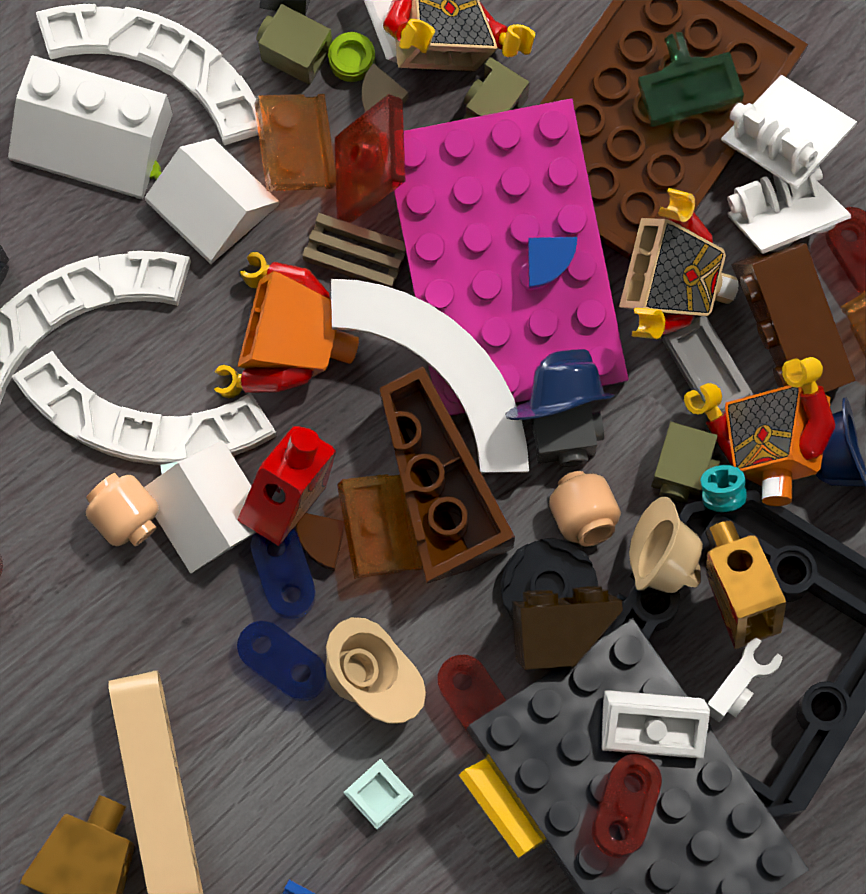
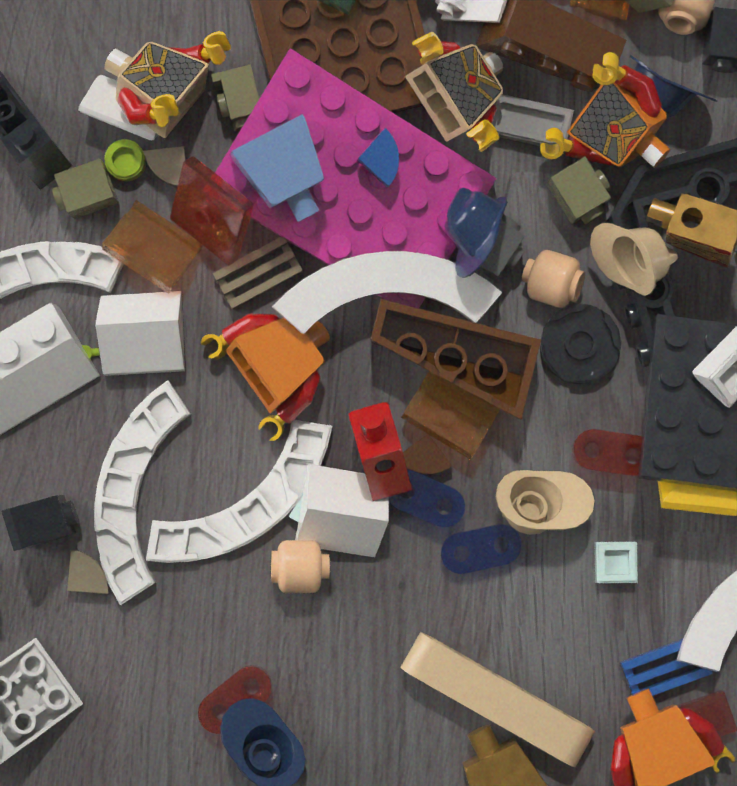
camera: 50 degrees left, 10 degrees up
(460, 178) = (283, 166): none -> medium blue torso
(563, 629) = (624, 362): dark brown slope -> none
(723, 488) = (616, 176): teal bush -> none

